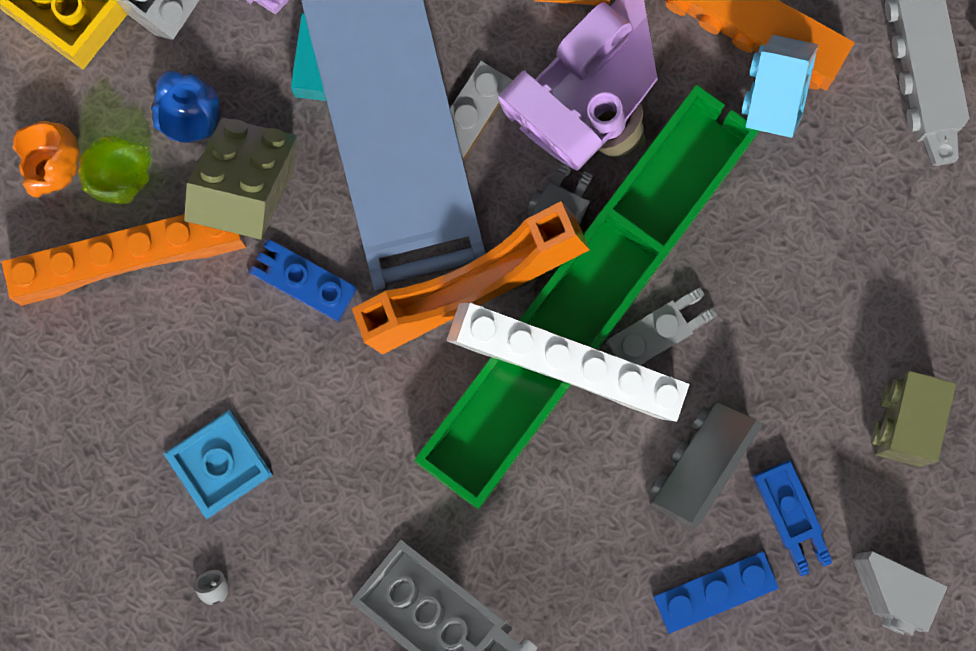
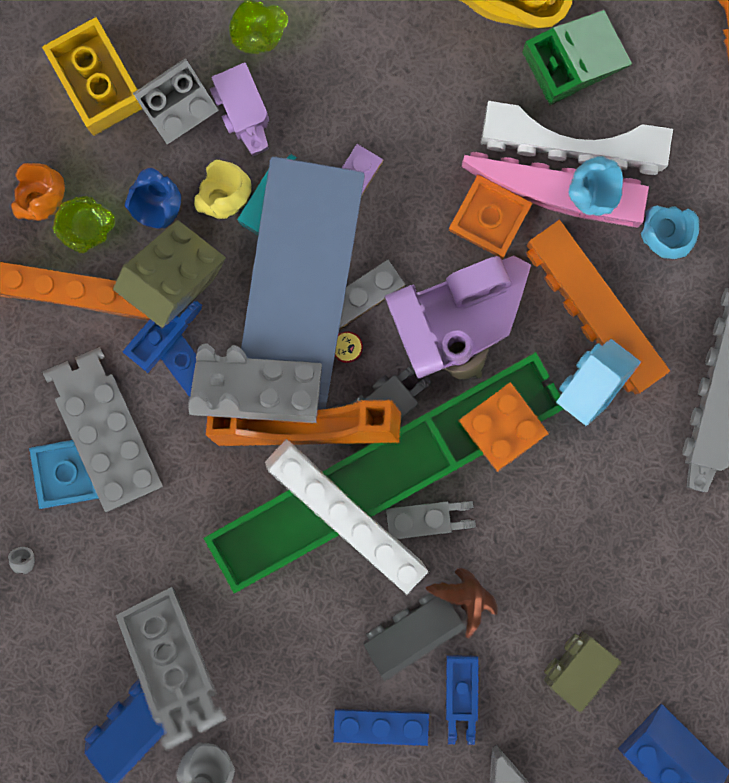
camera: 30 degrees right, 5 degrees up
(242, 396) = (103, 431): none -> light grey hinge
(258, 260) = (154, 341): none -> blue hinge
(260, 63) = (223, 190): none -> light yellow hair
(394, 264) = (254, 387): none -> light grey hinge
(481, 178) = (348, 347): none -> light yellow tile
(699, 181) = (503, 427): none -> orange plate
(746, 388) = (469, 595): none -> copper animal

